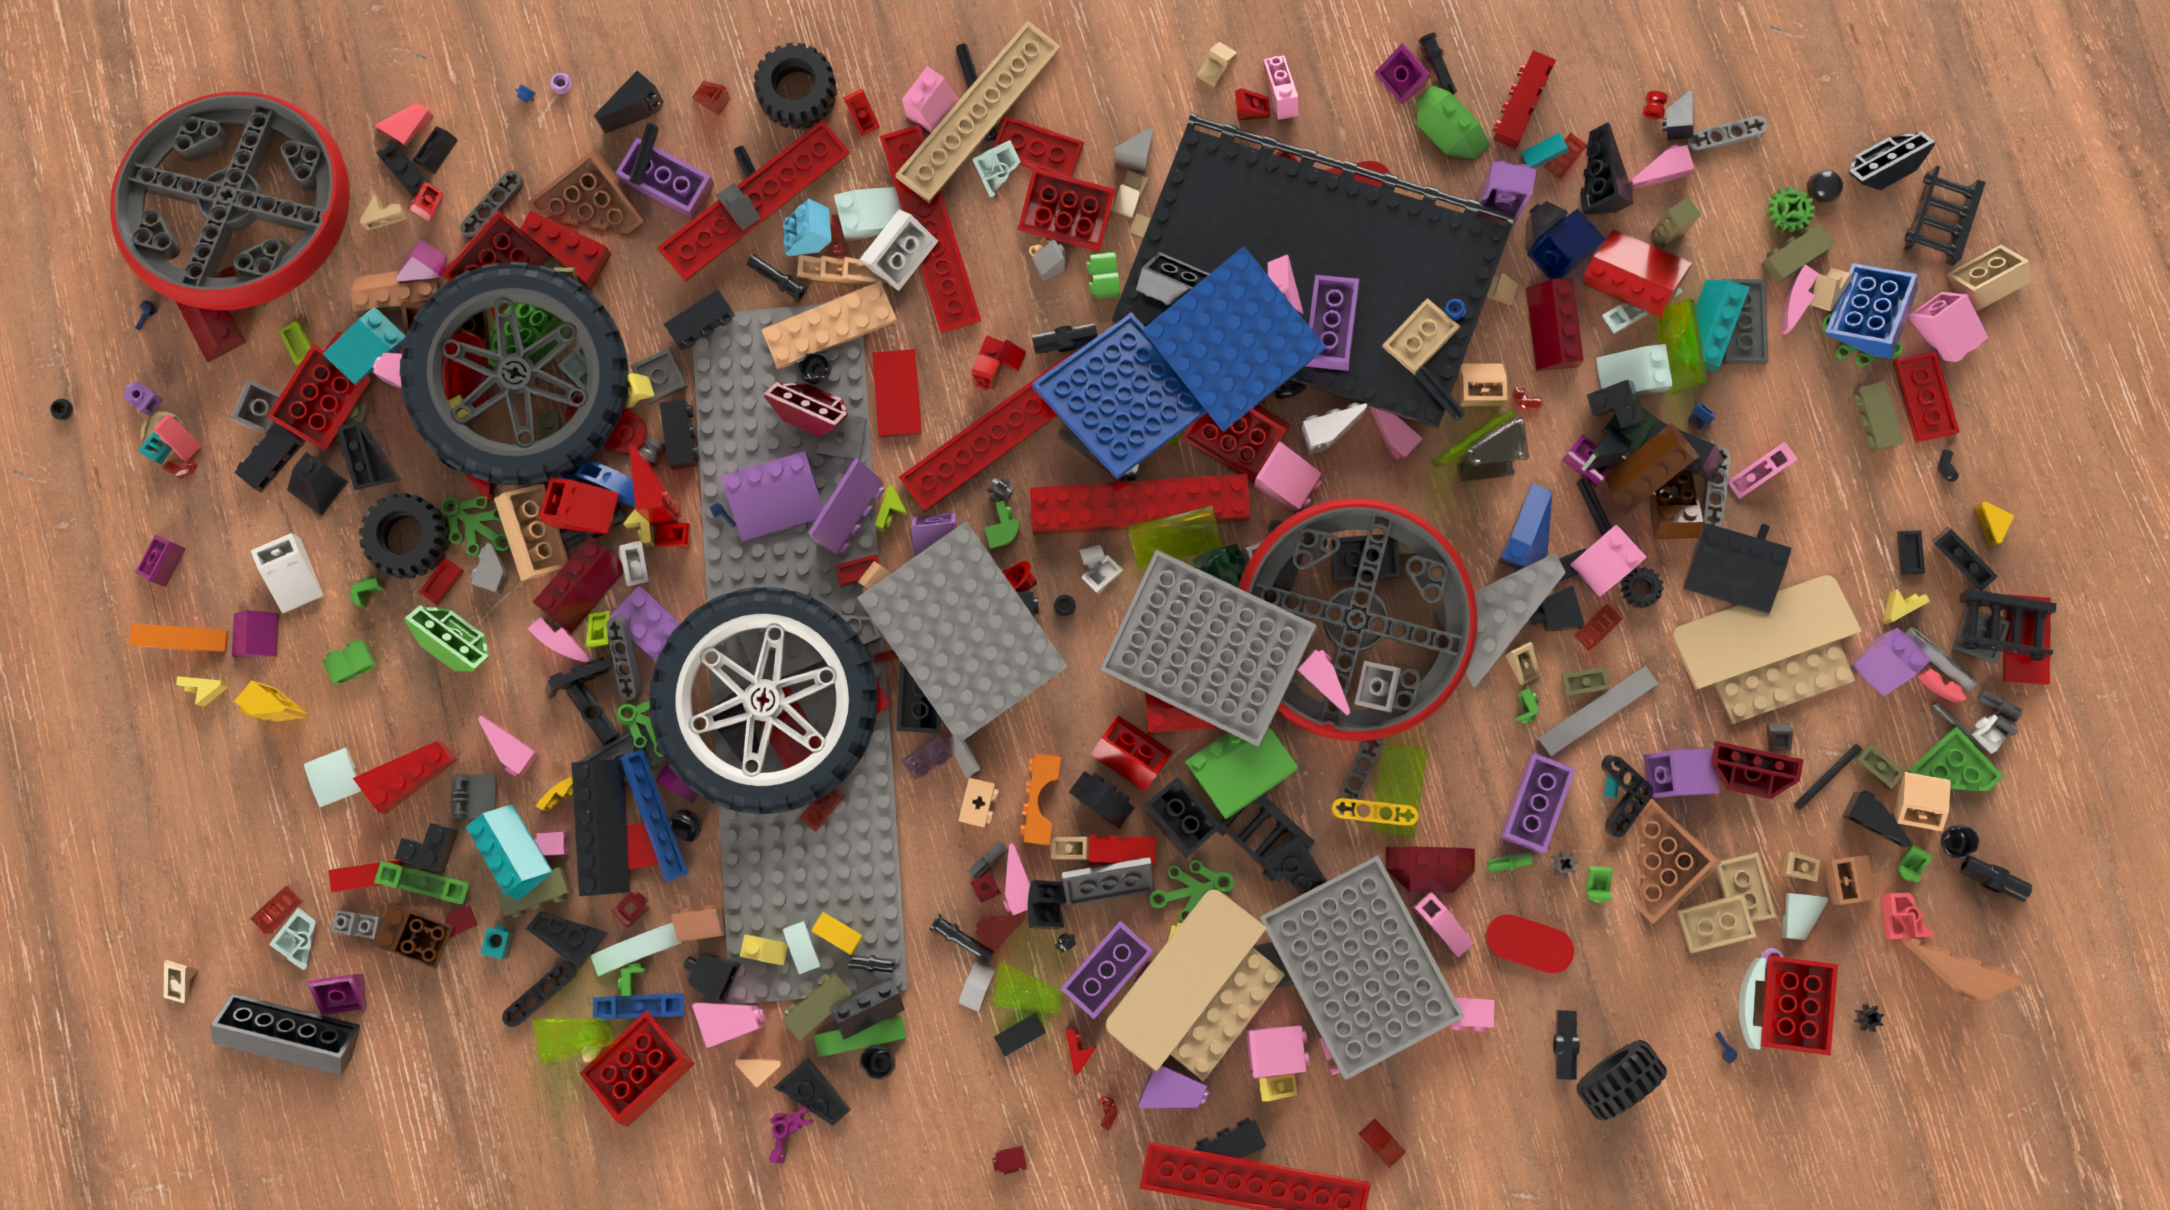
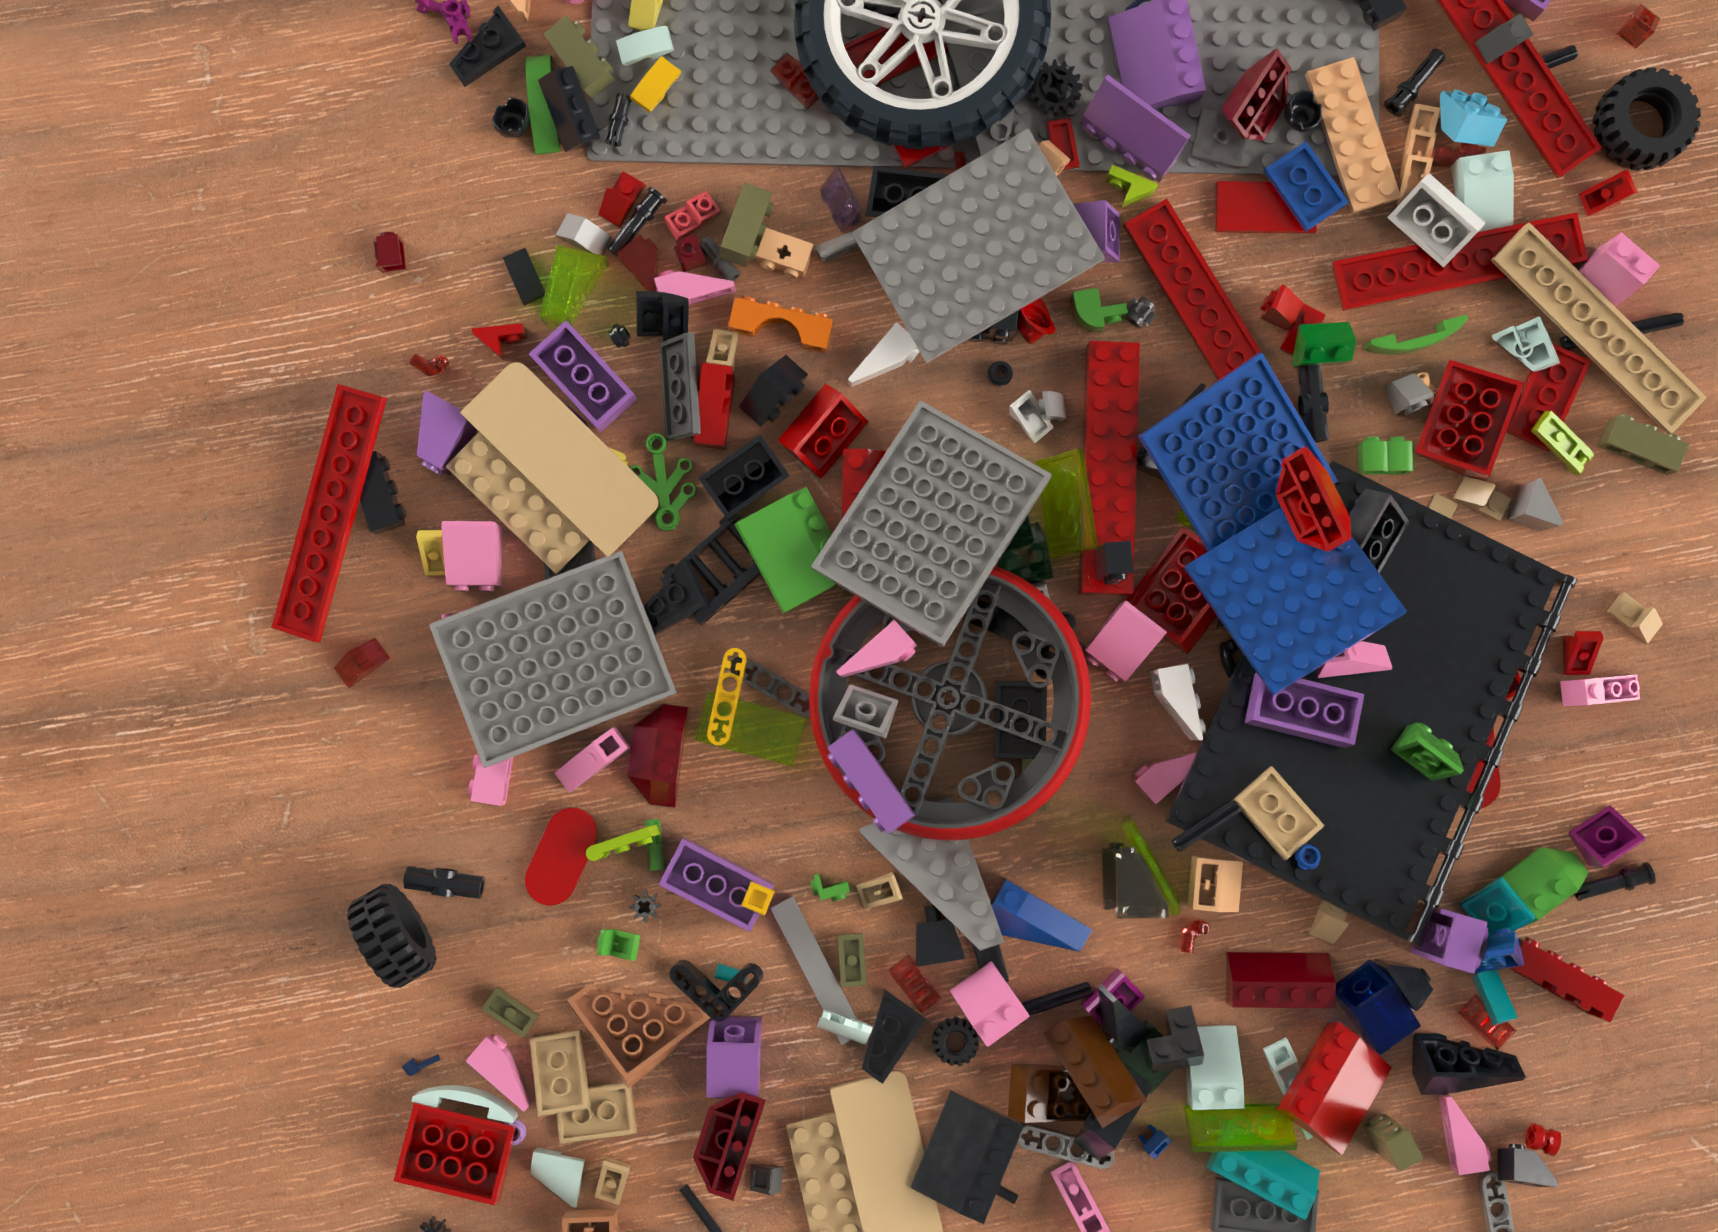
camera: 90 degrees right, 5 degrees up
(818, 576) = (1060, 78): none -> black gear
(878, 360) = (1305, 186): none -> blue plate
(941, 955) = (620, 199): none -> red slope
(950, 890) = (691, 216): none -> coral slope
(957, 838) = (746, 225): none -> olive brick
(991, 235) = (1389, 345): none -> bright green slope
(1016, 333) = (1324, 344): none -> green slope
(1057, 701) = (889, 354): none -> white slope
(1071, 68) = (1643, 444): none -> olive brick
(1077, 133) = (1562, 442): none -> lime plate
(1161, 329) = (1312, 502): none -> red wedge
(1228, 489) = (1113, 562): none -> black brick
(1356, 220) = (1427, 753): none -> bright green slope
(1437, 675) = (870, 781): none -> medium lavender brick
(1473, 155) = (1498, 906): none -> teal tile
(1508, 148) = (1500, 951): none -> blue wedge
(1512, 889) = (622, 843): none -> lime plate
(1546, 764) = (758, 898): none -> yellow tile
(1643, 679) = (845, 1027): none -> light aqua slope
(1645, 642) = (891, 1036): none -> black wing
(1670, 973) = (510, 1012): none -> olive plate
(1717, 979) = (498, 1066): none -> bright pink slope

